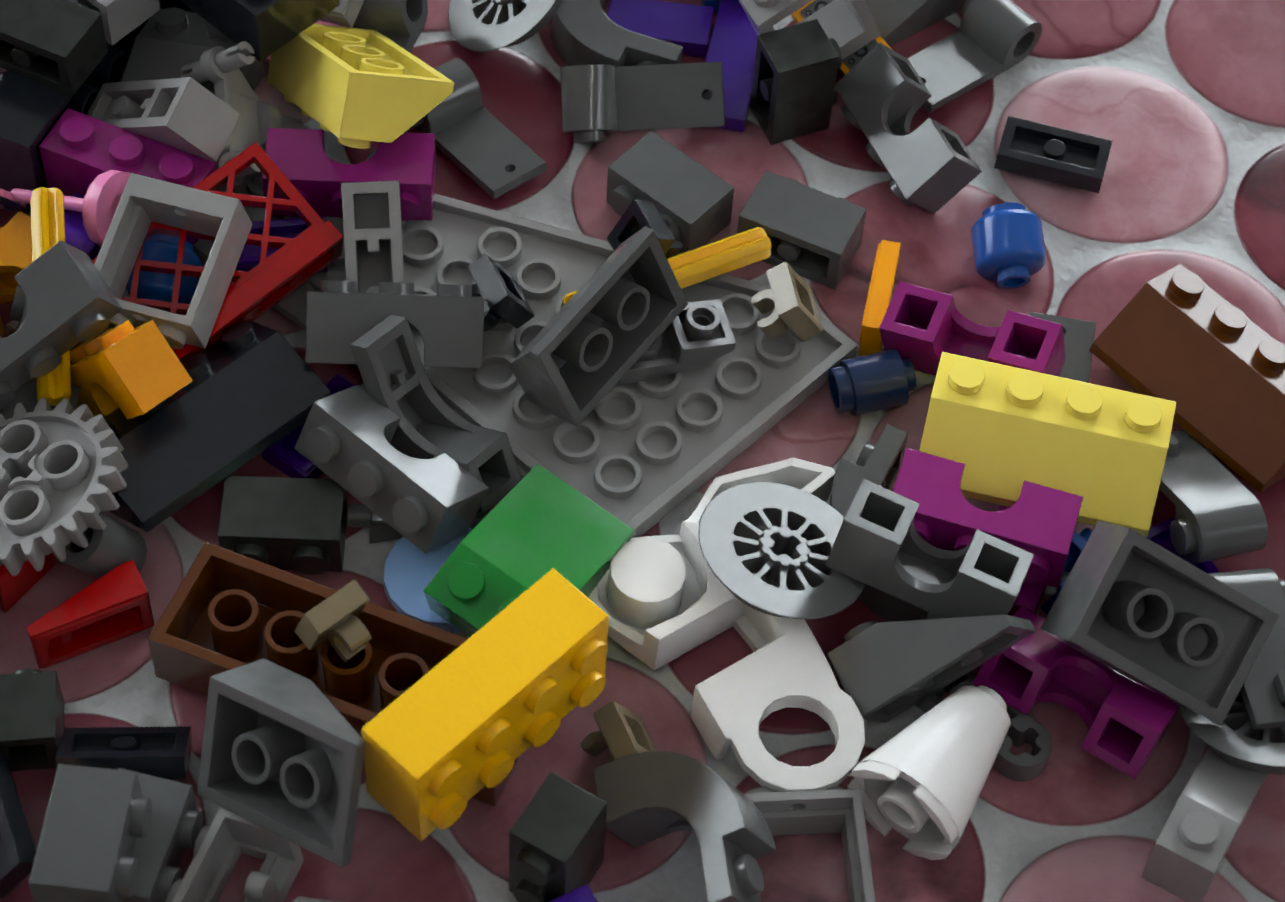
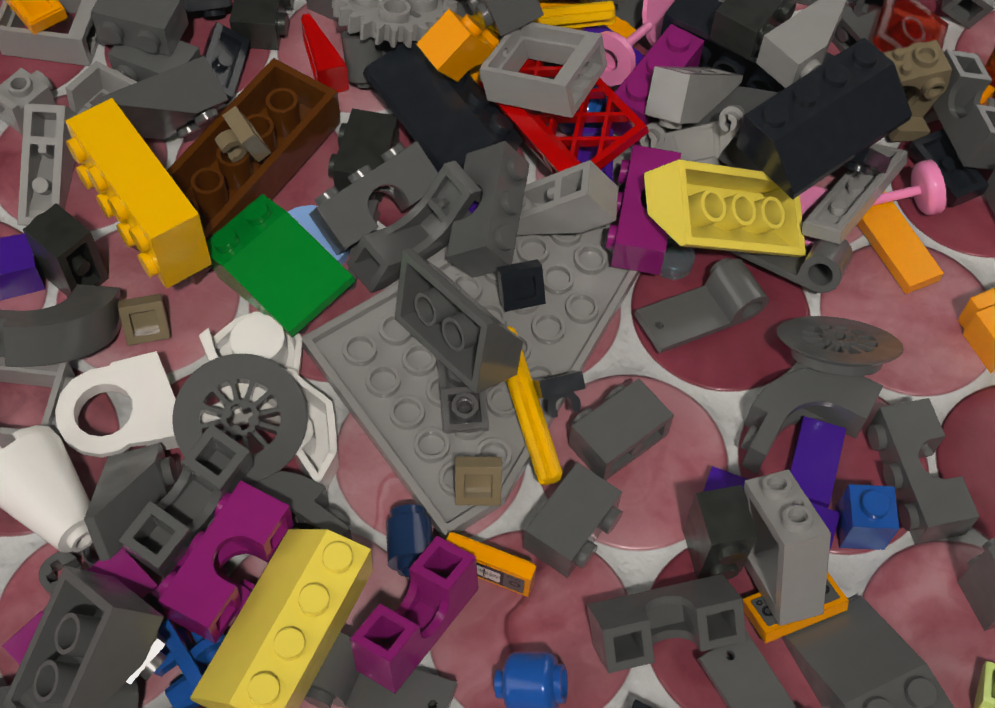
camera: 100 degrees right, 5 degrees up
(640, 98) = (723, 398): dark grey door -> none

